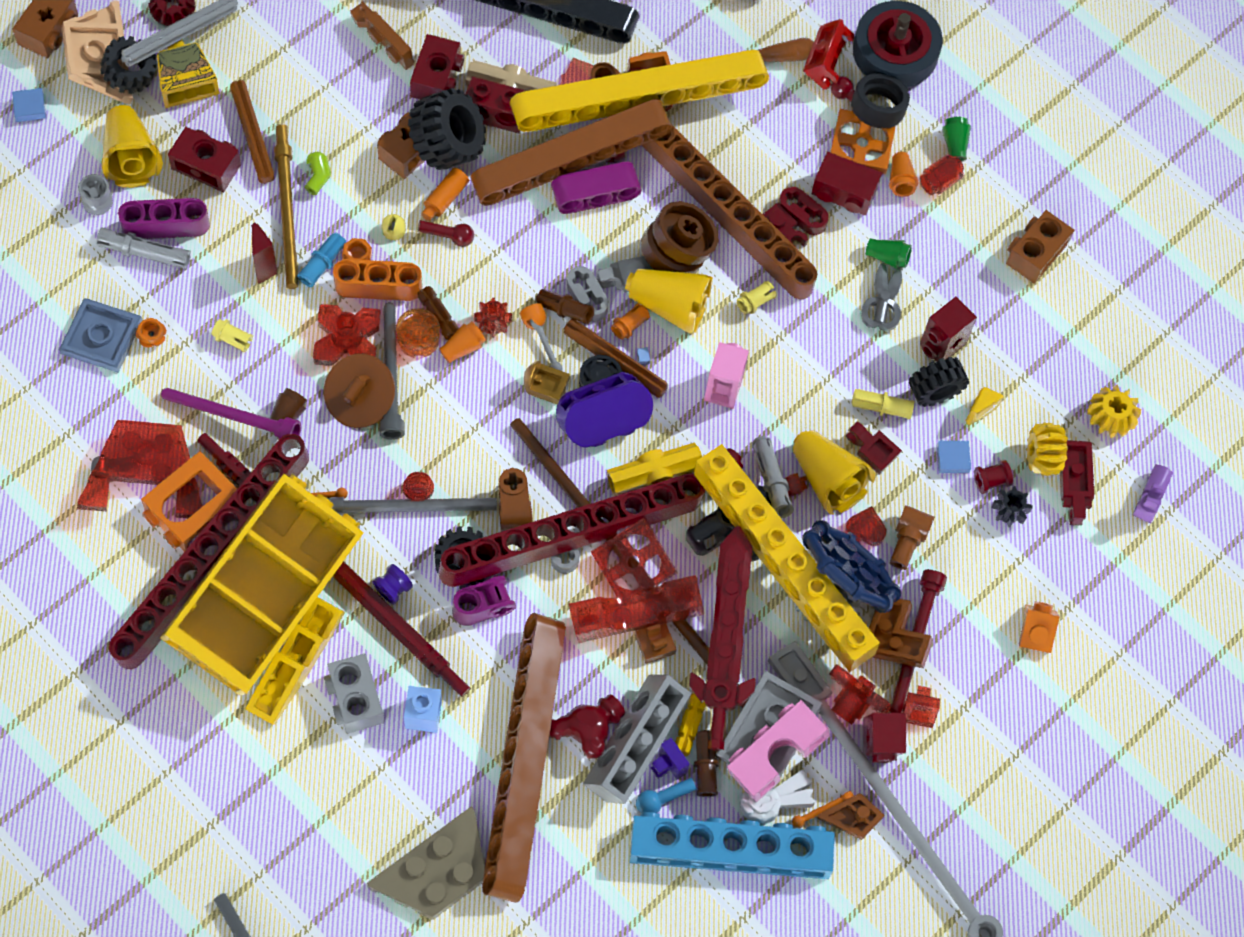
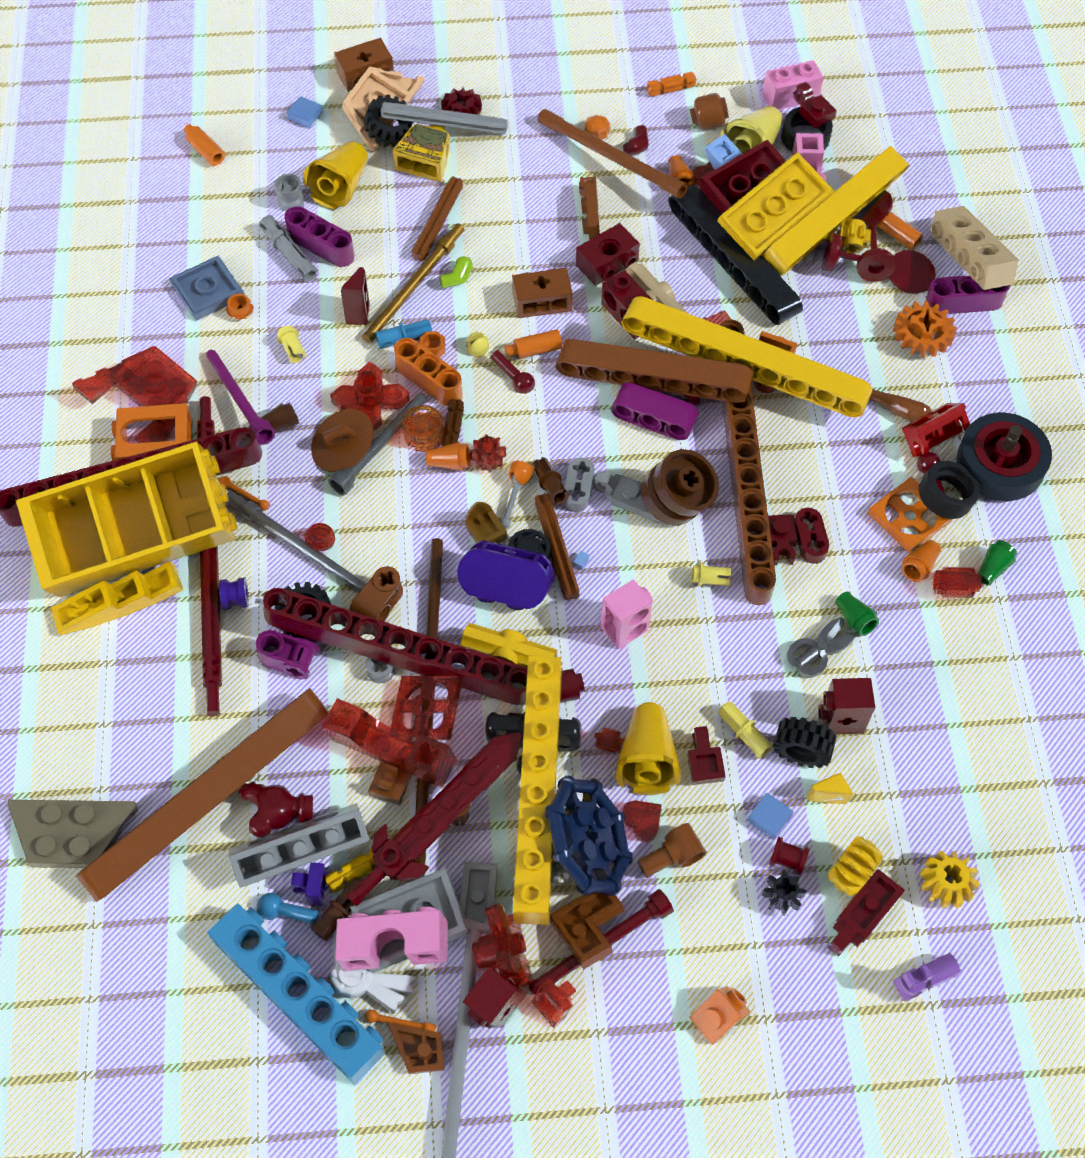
camera: 45 degrees right, 5 degrees down
(215, 171) = (385, 214): dark red brick -> none
(360, 692) = (139, 655): light grey brick -> none
(423, 709) = (166, 700): light blue brick -> none
(447, 129) = (589, 297): black tyre -> none
(625, 325) = (591, 526): orange pin -> none
(671, 295) = (639, 527): yellow cone -> none
(773, 481) = (590, 727): light grey pin -> none
(846, 183) = (863, 535): dark red brick -> none
(1041, 247) = (999, 702): dark orange brick -> none

